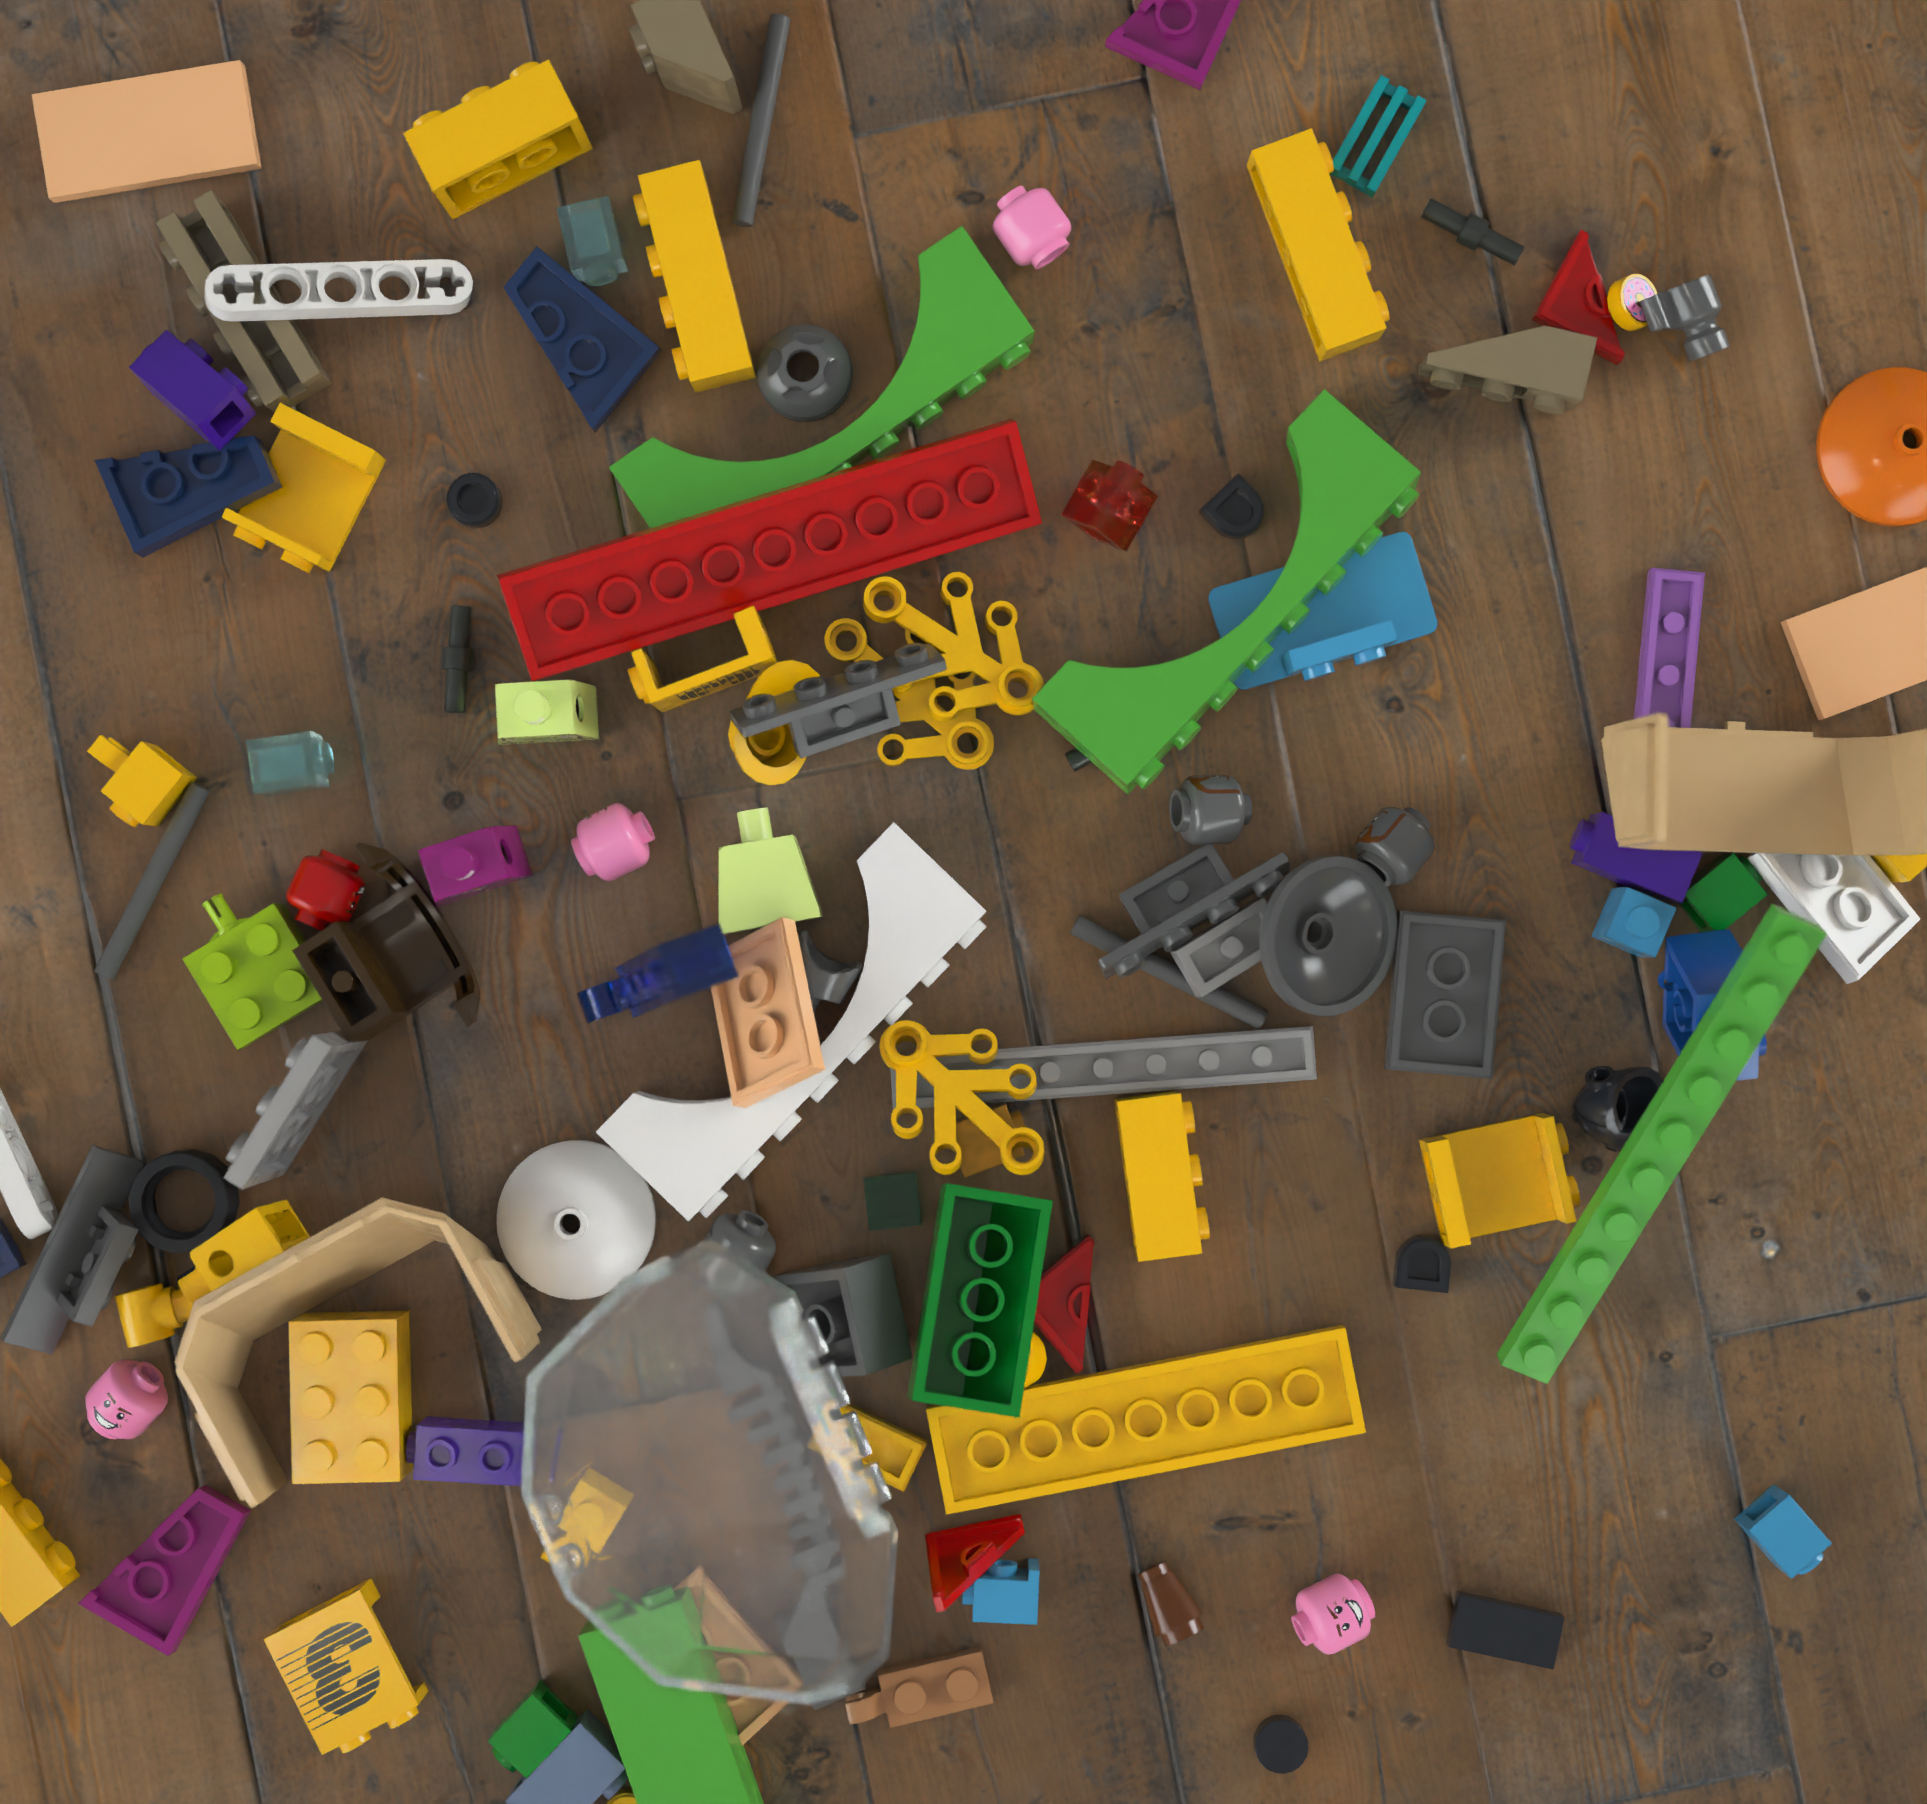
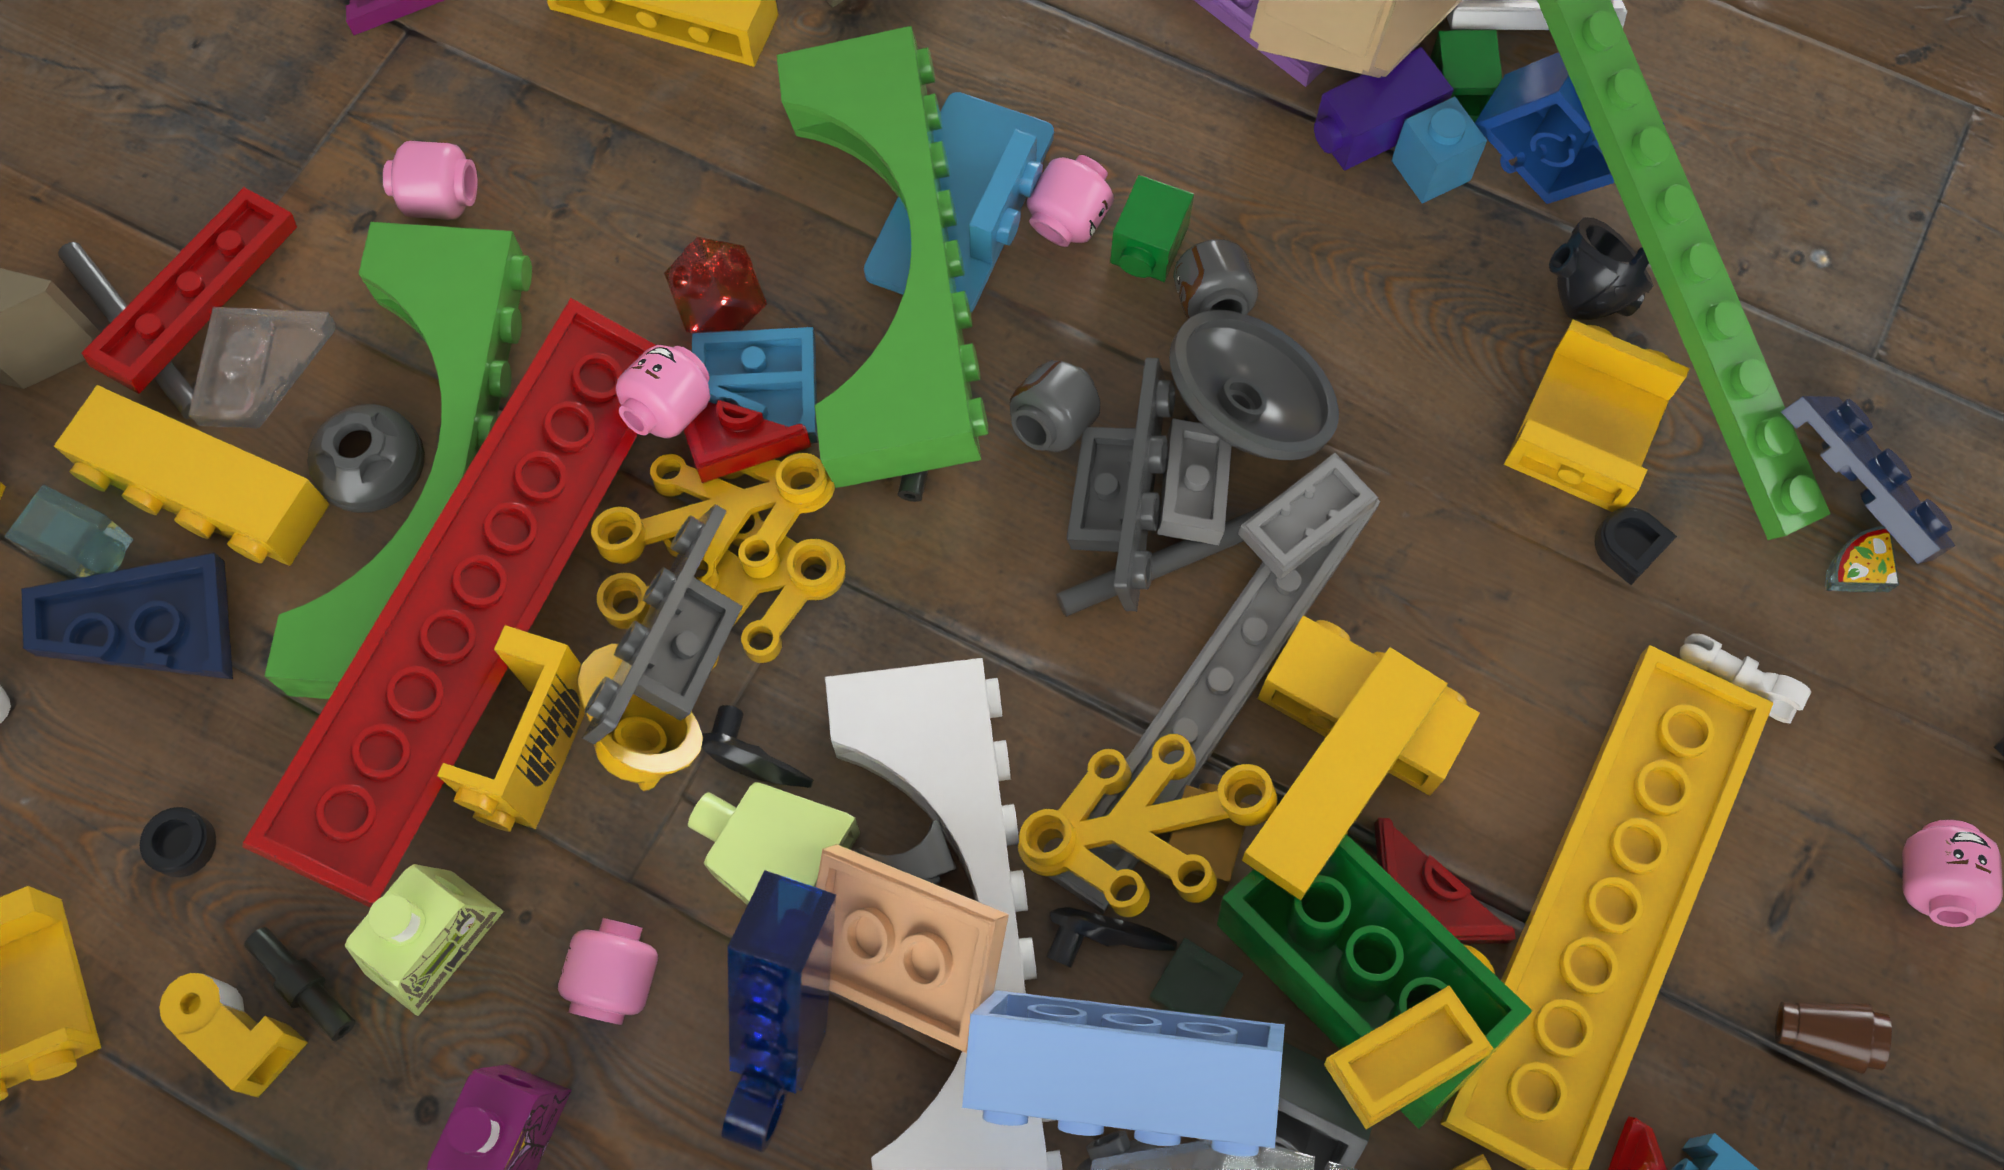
camera: 55 degrees left, 20 degrees down
(393, 649) = (217, 1030): none -> yellow leg
(788, 1209) = (1125, 1071): none -> light blue brick
(805, 234) = (254, 362): none -> clear wing
(809, 808) = (745, 757): none -> black bar
(819, 143) = (187, 289): none -> red plate
(874, 1103) = (1109, 931): none -> black bar
(930, 1364) = (1408, 1057): none -> yellow tile
(999, 546) = (663, 391): none -> bright pink head
(1011, 610) = (736, 438): none -> red tile
(1073, 590) = (763, 372): none -> dark azure wing
(1088, 1199) = (1344, 773): none -> yellow tile
(1234, 510) = (813, 208): black tile -> none
(1259, 1042) = (1307, 516): none -> light grey plate
(1378, 1423) = (1784, 691): none -> white piece
(1381, 692) = (1070, 200): none -> bright pink head
(1402, 767) = (1151, 229): none -> green brick
(1445, 994) = (1385, 346): dark grey tile -> none
(1528, 1428) = (1864, 564): none -> tile
(1601, 1377) = (1852, 452): none -> dark blue wing

